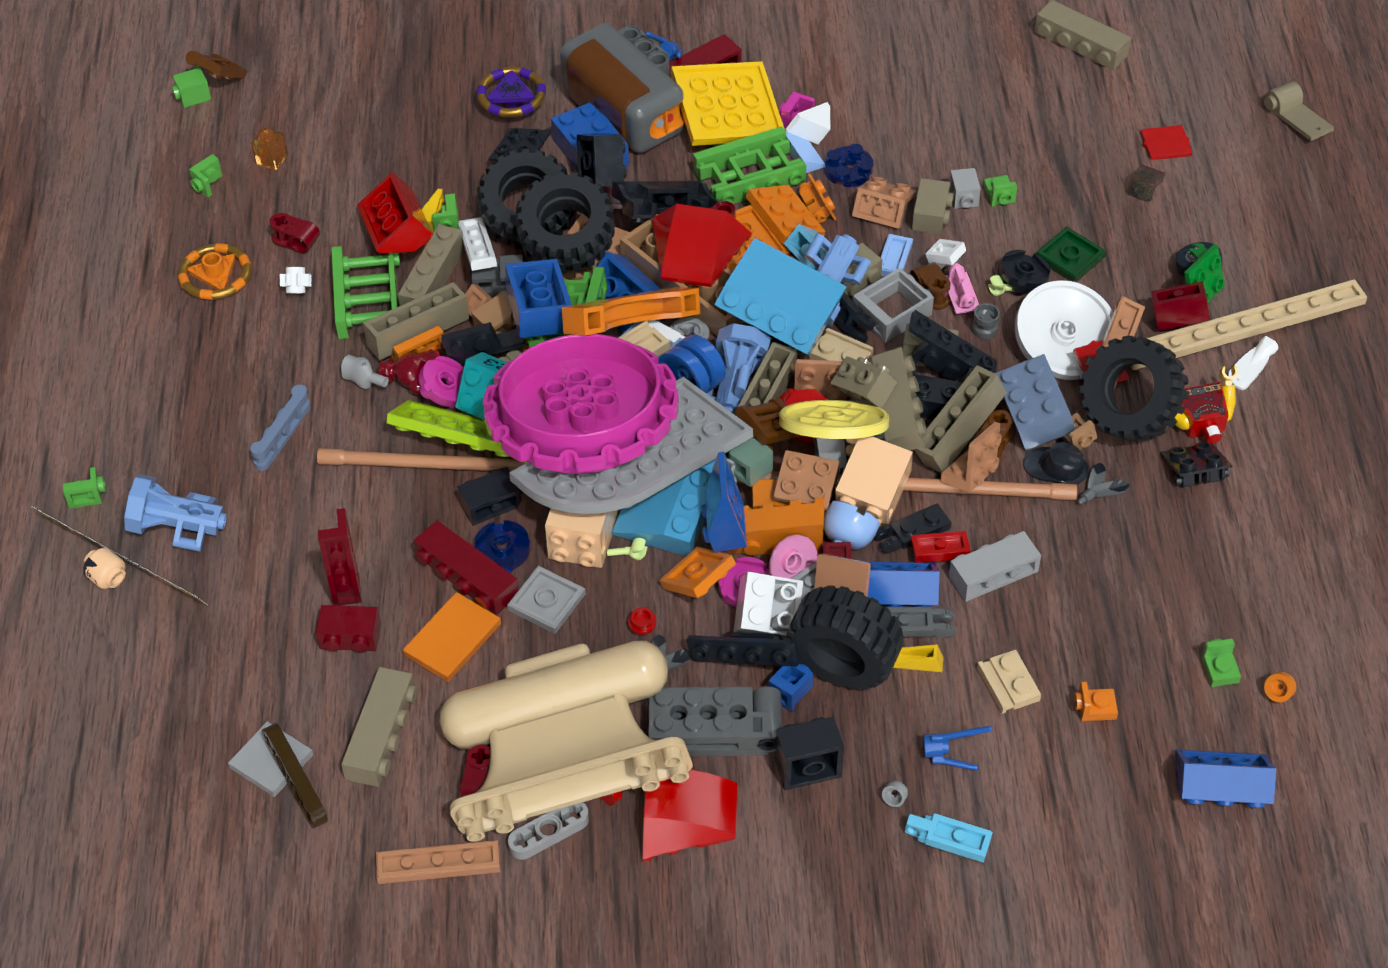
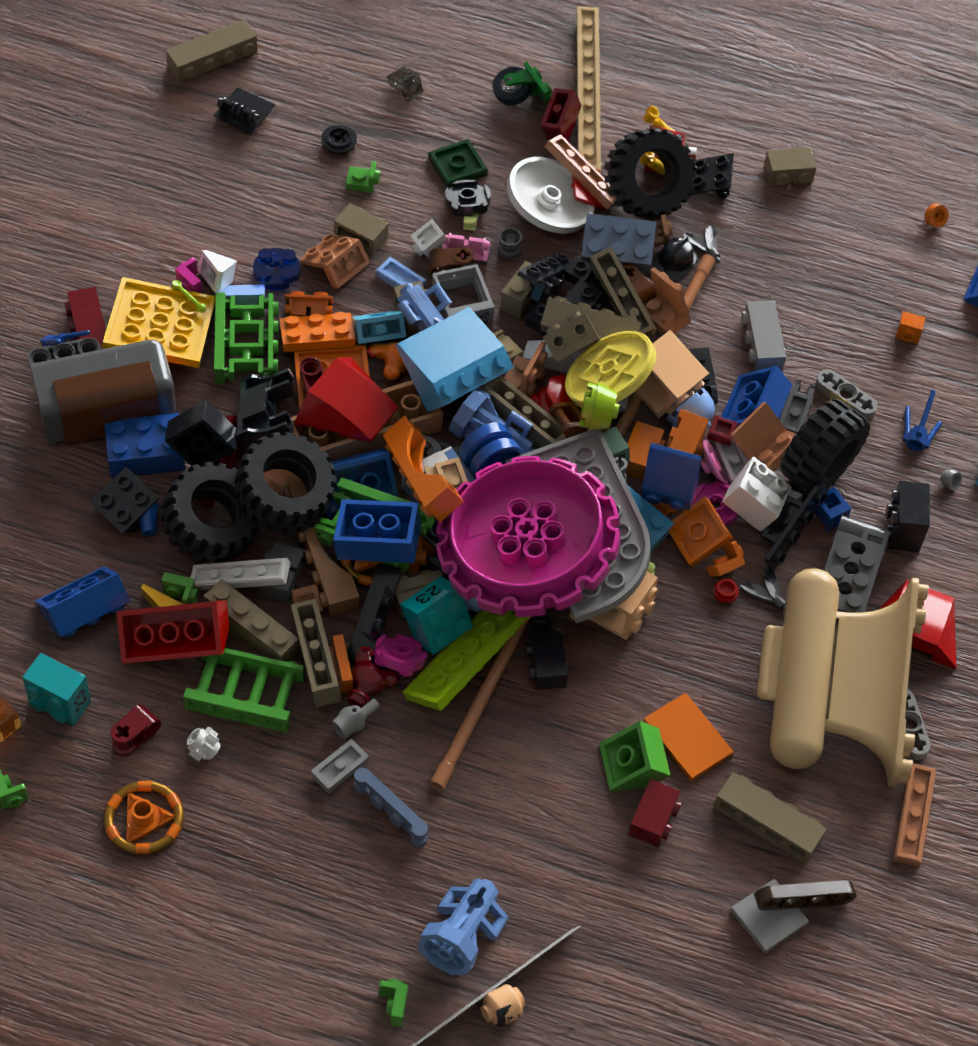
camera: 75 degrees left, 5 degrees up
(305, 167) = (56, 689): none -> teal brick
(317, 381) = (339, 766): none -> light grey plate
(340, 562) = (613, 777): dark red fence -> none
(406, 597) = (634, 757): none -> bright green slope
(407, 159) = (83, 601): none -> blue slope
(465, 567) = (621, 702): dark red brick -> none
(475, 772) = (849, 756): dark red piece -> none
(509, 532) = (603, 681): clear blue plate -> none
(511, 92) = (40, 485): piece -> none
(546, 599) = (673, 654): light grey tile -> none
(677, 611) = (728, 562): none -> orange bracket
(761, 408) = (598, 407): none -> lime cone
(778, 100) = (176, 284): none -> lime hinge
(806, 478) = (646, 418): nougat bracket -> none
(939, 546) = (731, 363): red plate -> none
(963, 676) = (844, 385): none -> light grey beam
(965, 187) = (354, 194): light grey brick -> none
(1009, 681) = (871, 371): tan plate -> none
(1027, 81) = (243, 109): none -> black hinge
(1029, 153) = (339, 132): none -> black gear
(1166, 142) = (362, 53): red piece -> none
(1220, 662) = (900, 241): bright green bracket -> none
(1253, 363) = (626, 102): white piece -> none
(1258, 527) = (790, 165): none -> dark tan piece

